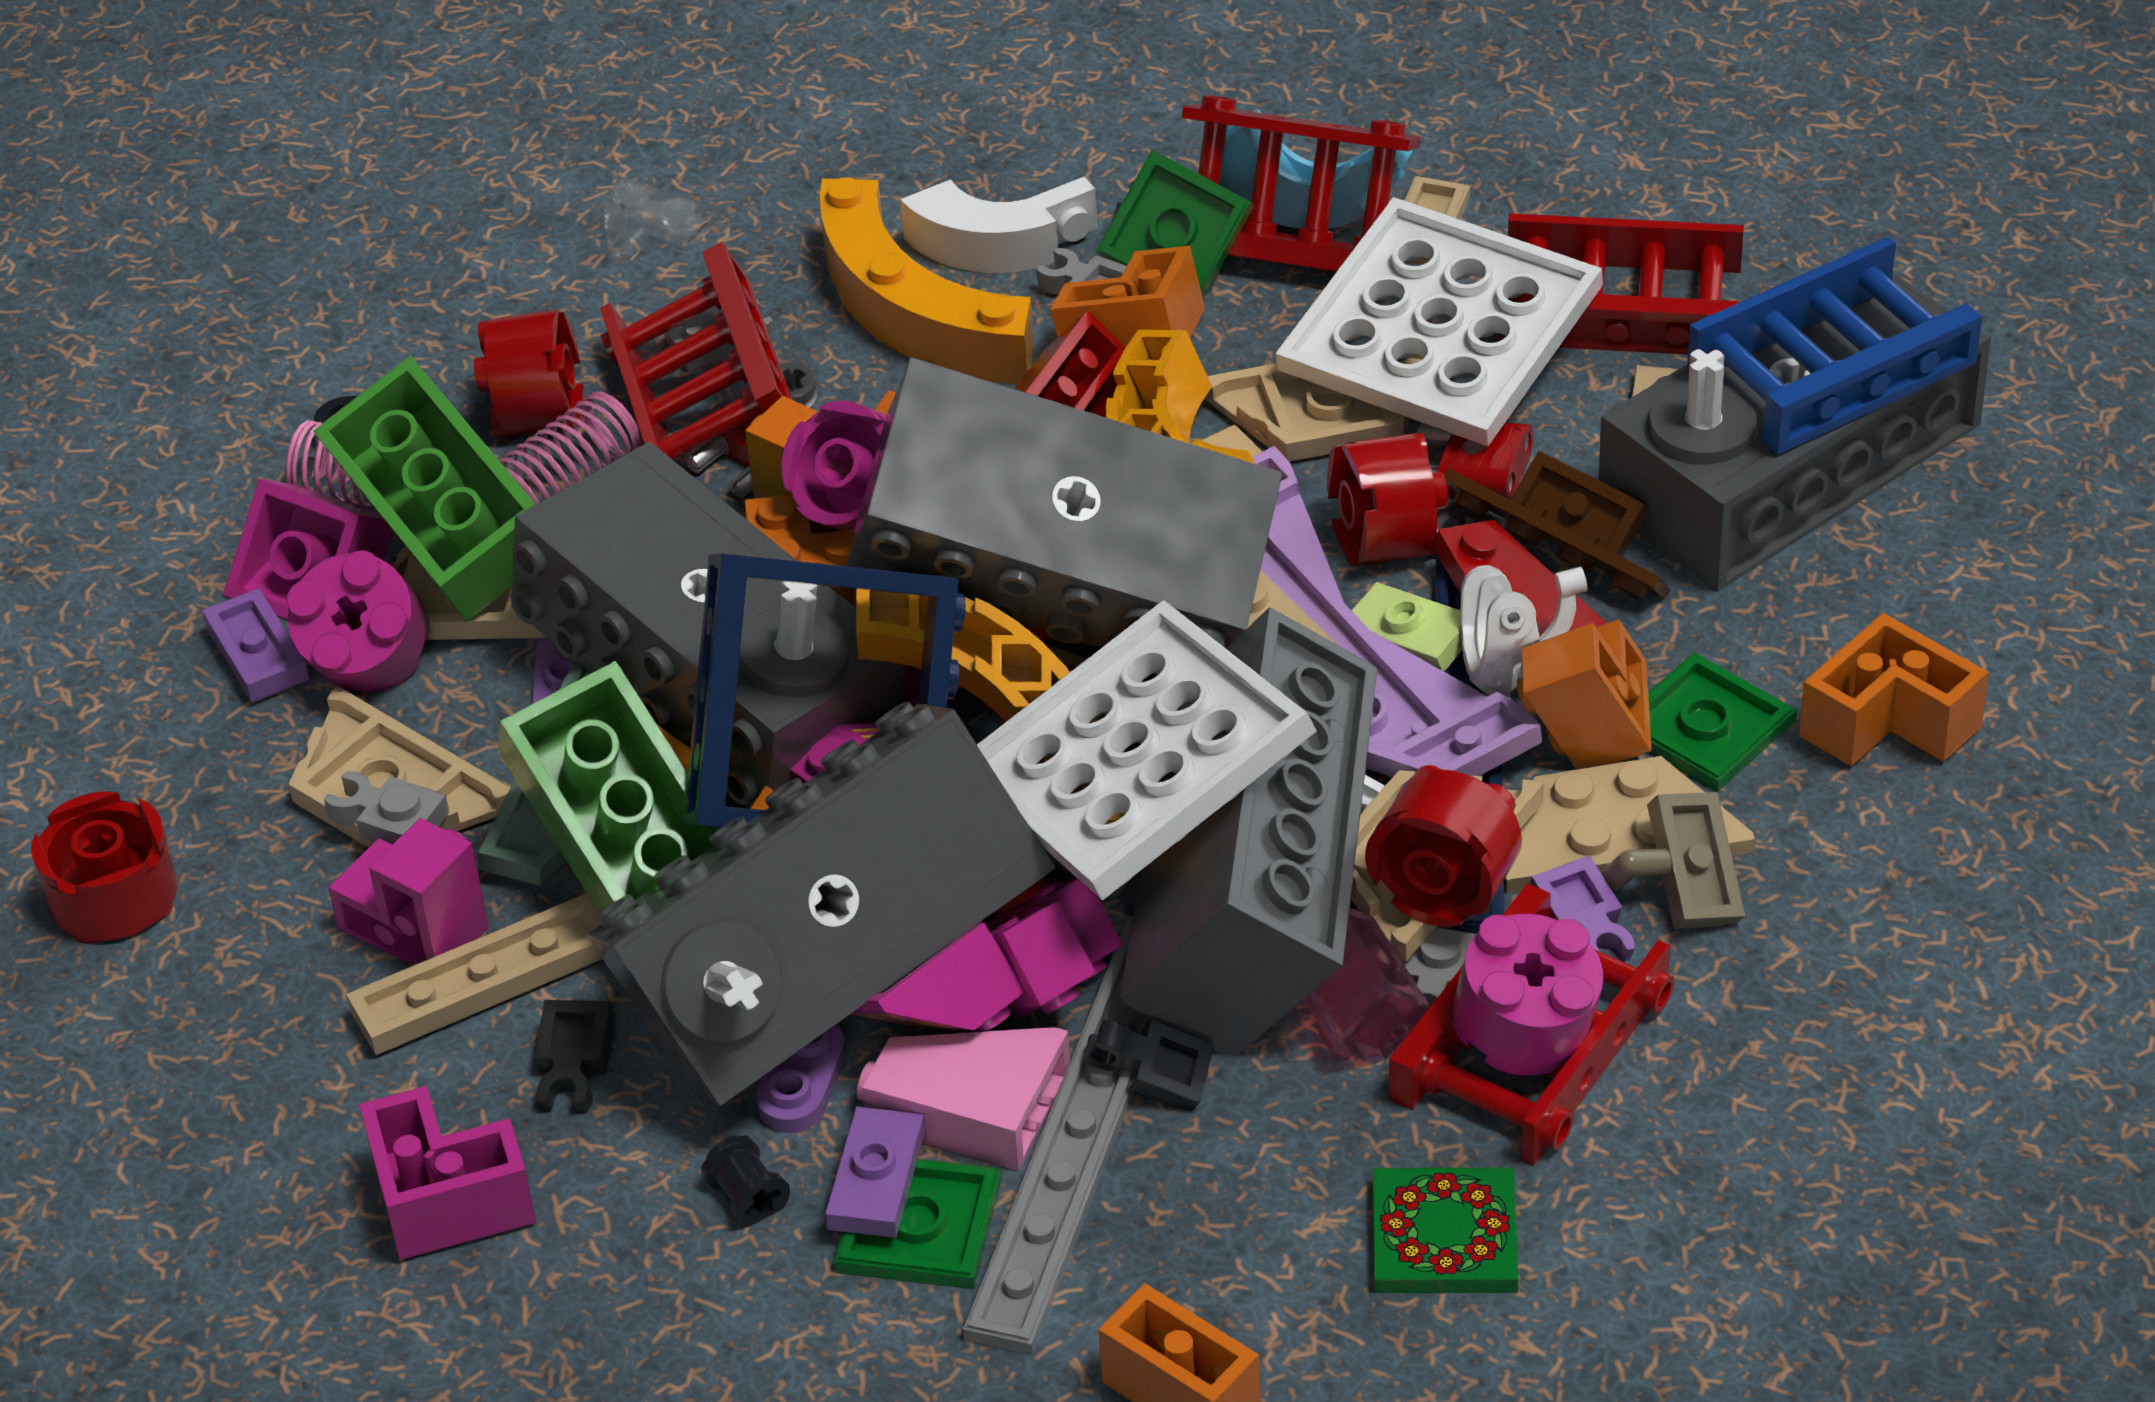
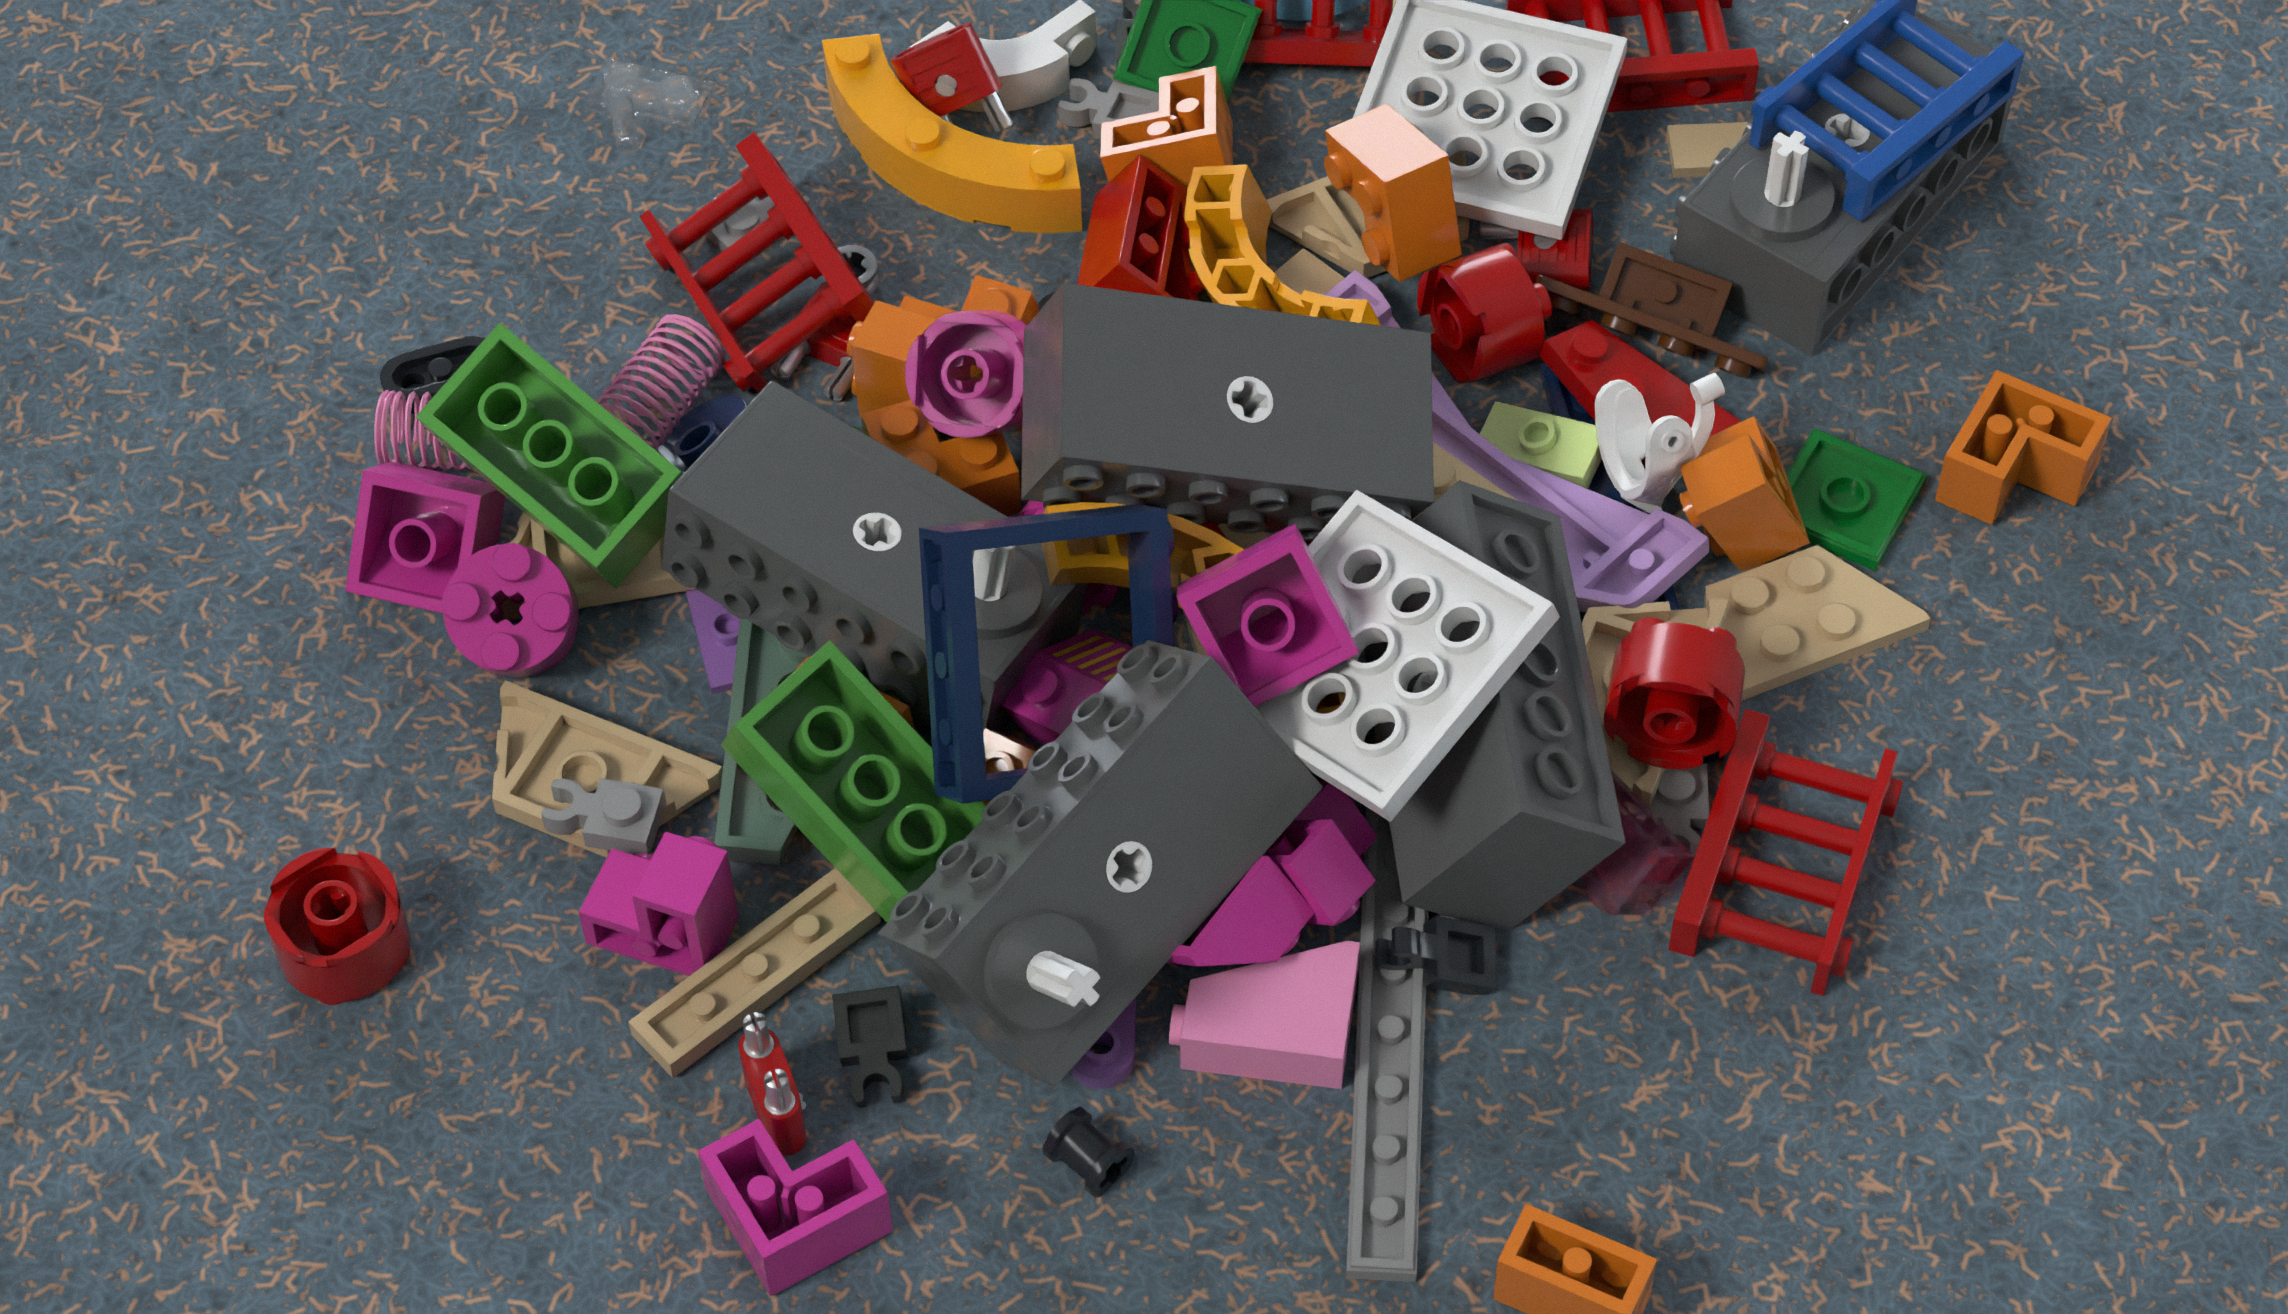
camera: 15 degrees left, 10 degrees up
(255, 645) = (402, 645): medium lavender plate -> none
(458, 1066) = (772, 1085): none -> red piece
(528, 371) = (590, 300): red brick -> none
(875, 1172) = (1215, 1122): medium lavender plate -> none
(934, 221) = (952, 73): none -> red piece
(938, 1233) = (1265, 1161): green tile -> none
(1036, 696) = (1268, 616): none -> dark pink slope
(1328, 368) = (1400, 187): none -> orange brick
(1445, 1230) = (1765, 1080): tile -> none
(1527, 992) = (1792, 831): dark pink brick -> none
(1584, 896) = (1796, 718): medium lavender plate -> none
(1692, 859) = (1882, 653): dark tan plate -> none

